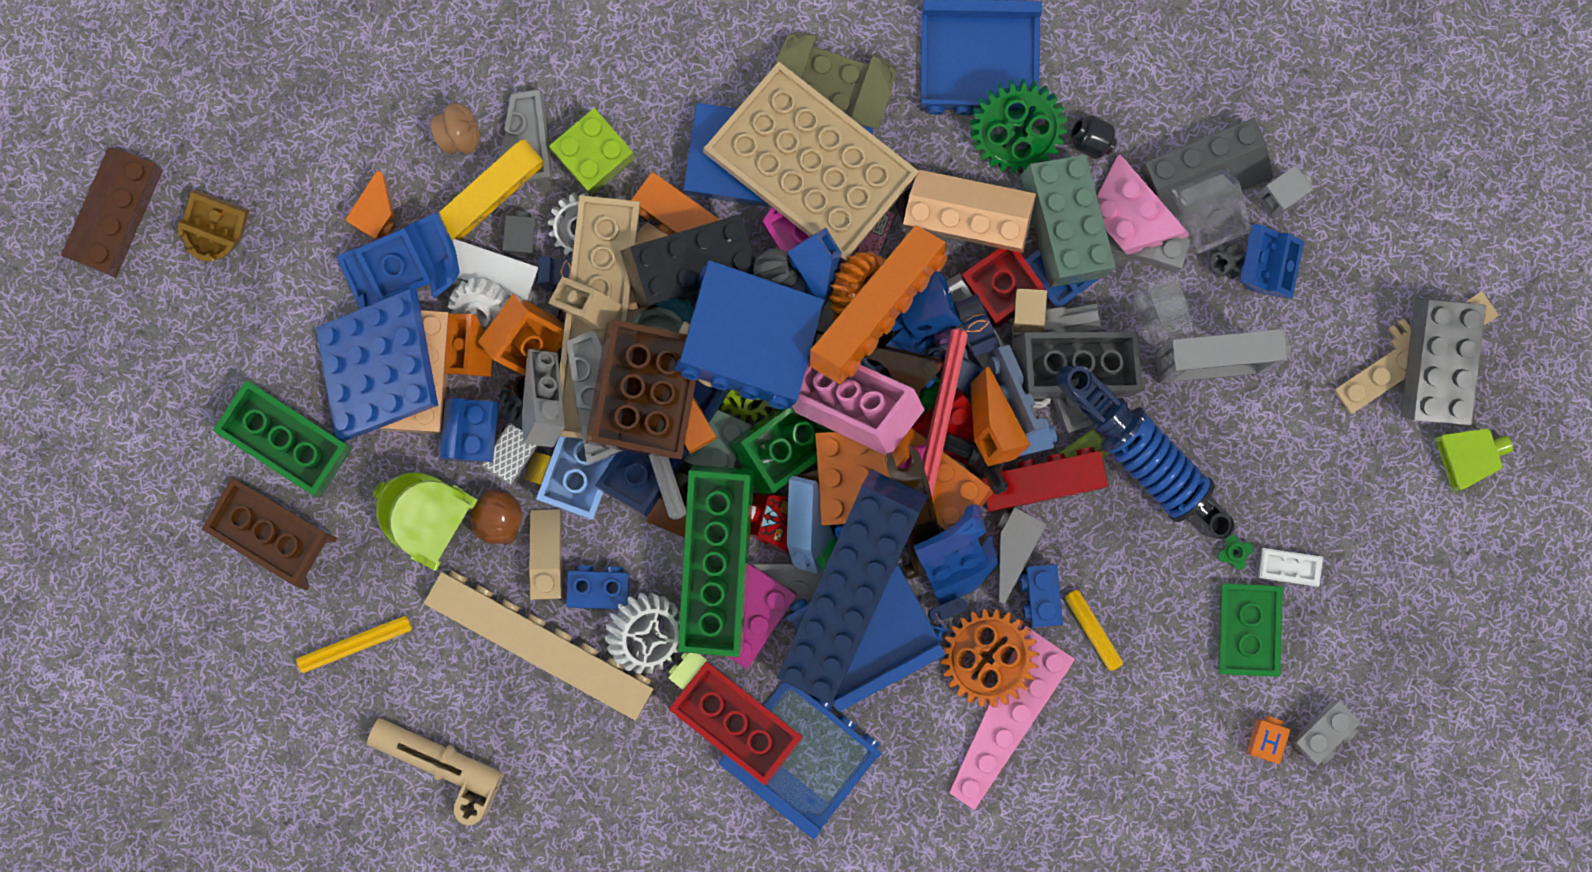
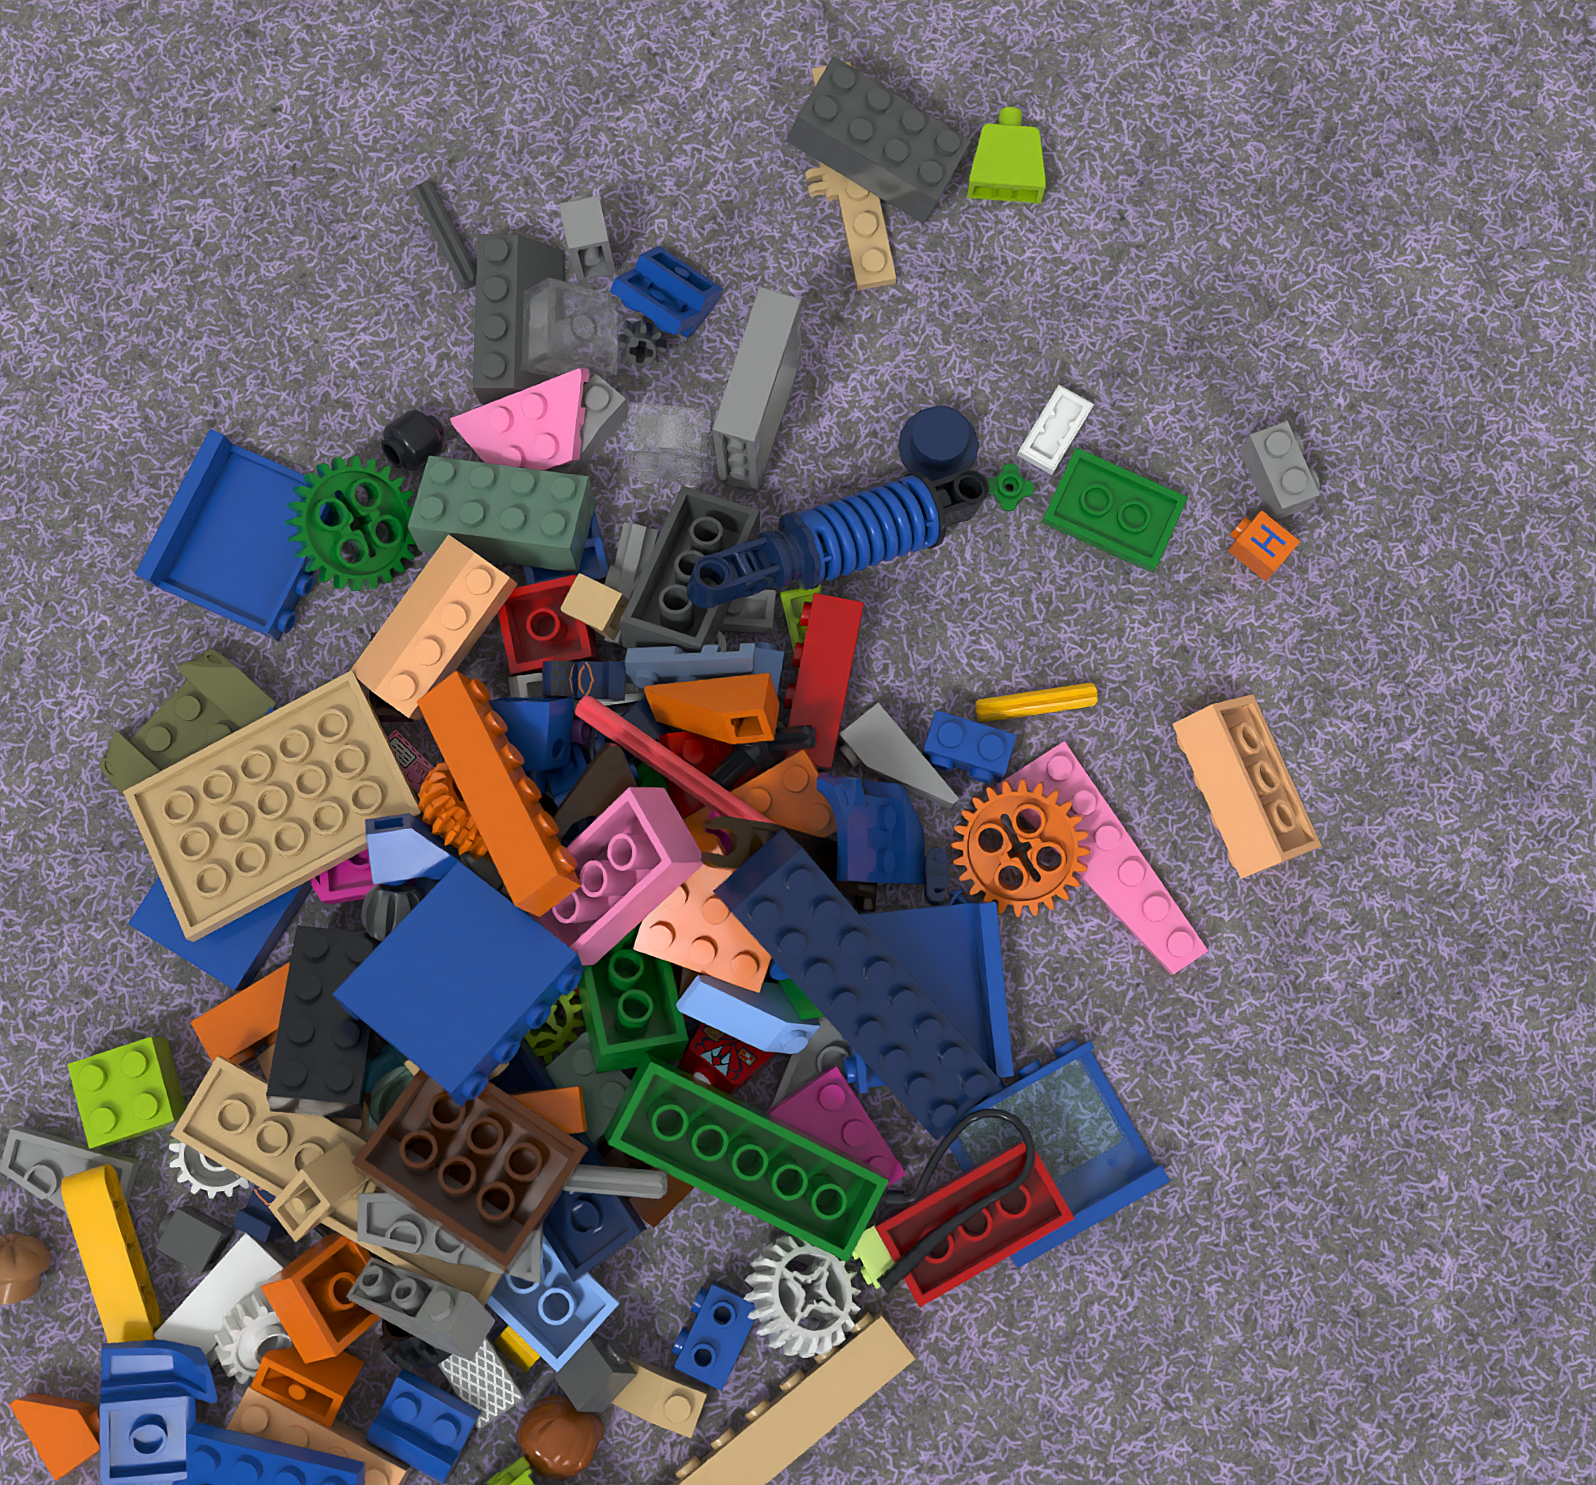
camera: 65 degrees left, 5 degrees down
(543, 524) = (596, 1374): none -> dark grey brick
(710, 698) = (930, 1241): none -> black piece
(1097, 793) = (1246, 785): none -> light nougat slope
(1245, 491) = (938, 443): none -> dark blue piece
(1249, 92) = (446, 234): none -> dark grey axle

